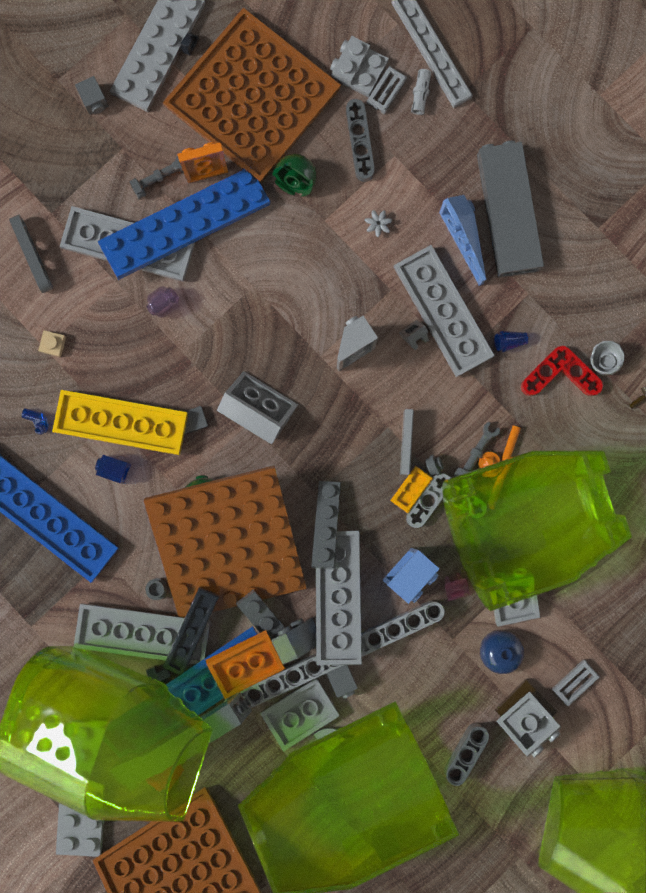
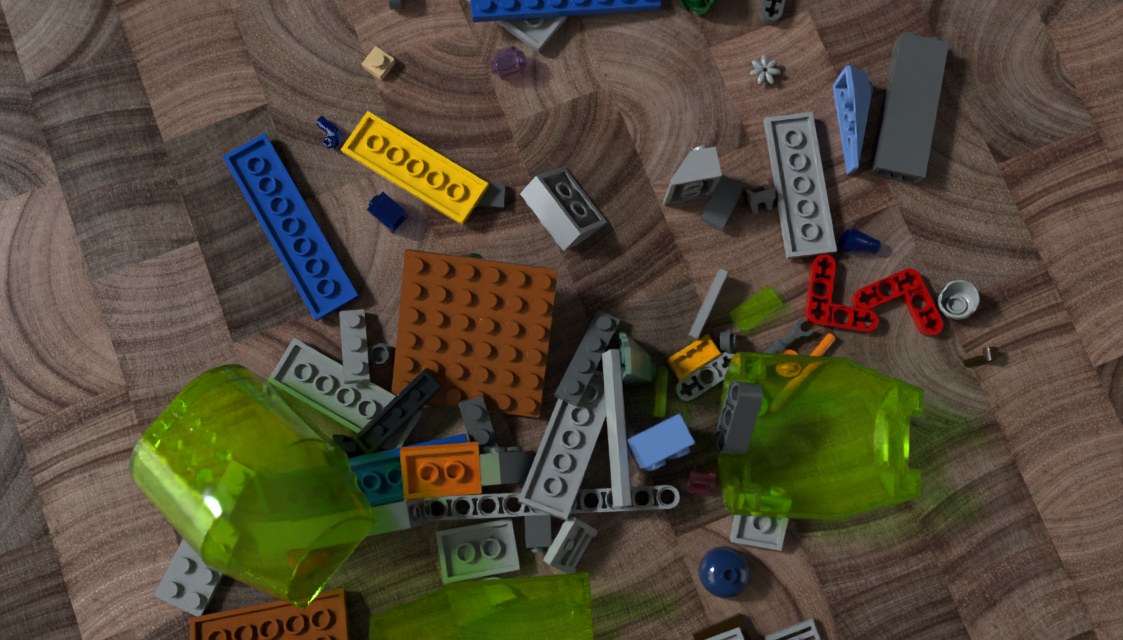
camera: 20 degrees right, 5 degrees down
(132, 591) = (354, 346): none -> light grey plate
(365, 513) = (635, 362): none -> sand green wedge
(371, 681) = (570, 545): none -> light grey plate
(372, 575) = (616, 428): none -> light grey tile
(386, 351) = (722, 202): none -> dark grey slope
(396, 529) = (660, 392): none -> clear neon green tile
(446, 429) = (755, 309): none -> clear neon green tile
(465, 530) = (737, 418): none -> dark grey beam
(507, 406) = (828, 309): none -> red beam

